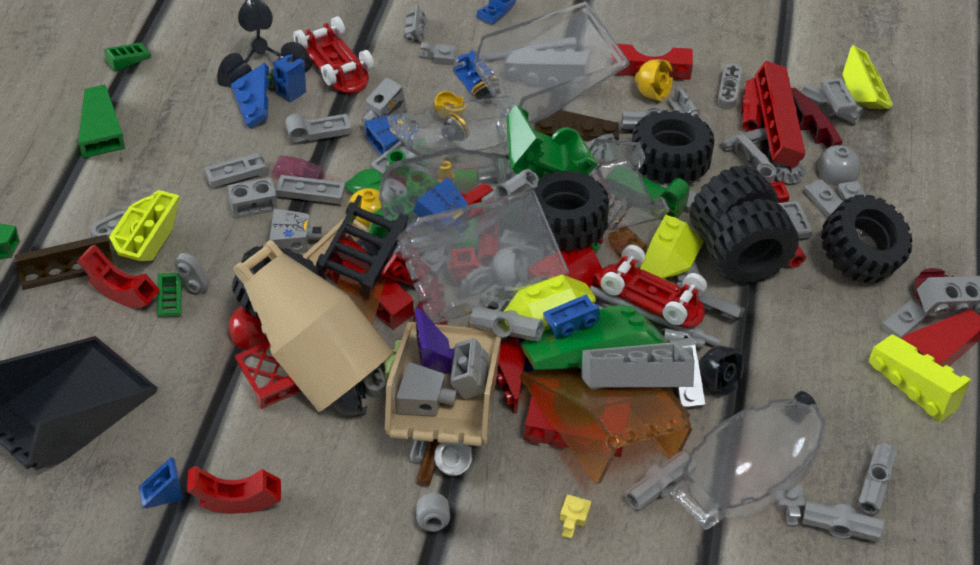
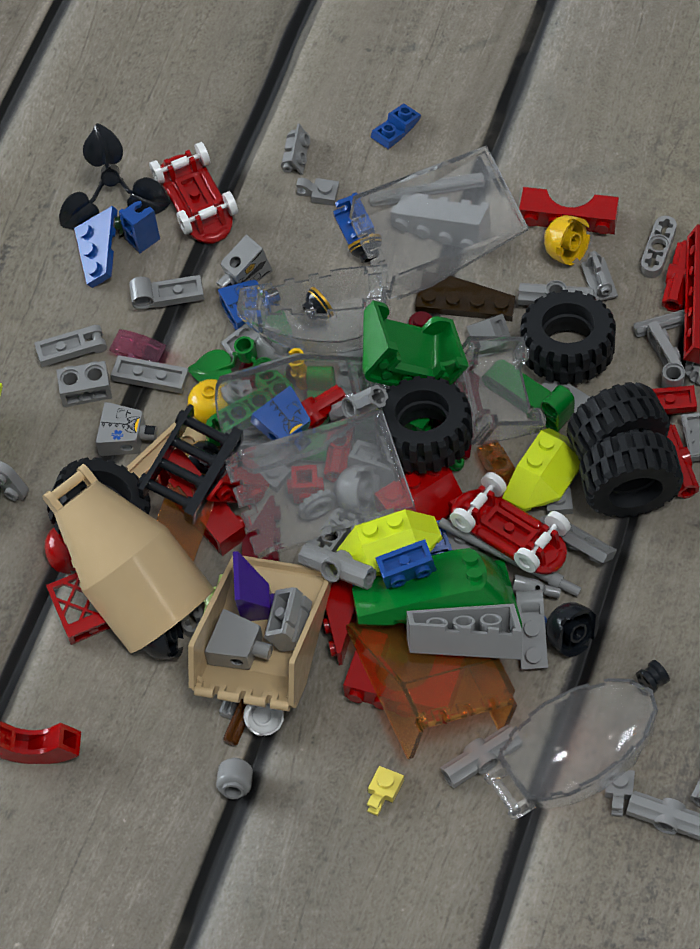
camera: 15 degrees right, 10 degrees up
(445, 98) = (318, 262): yellow hair -> none

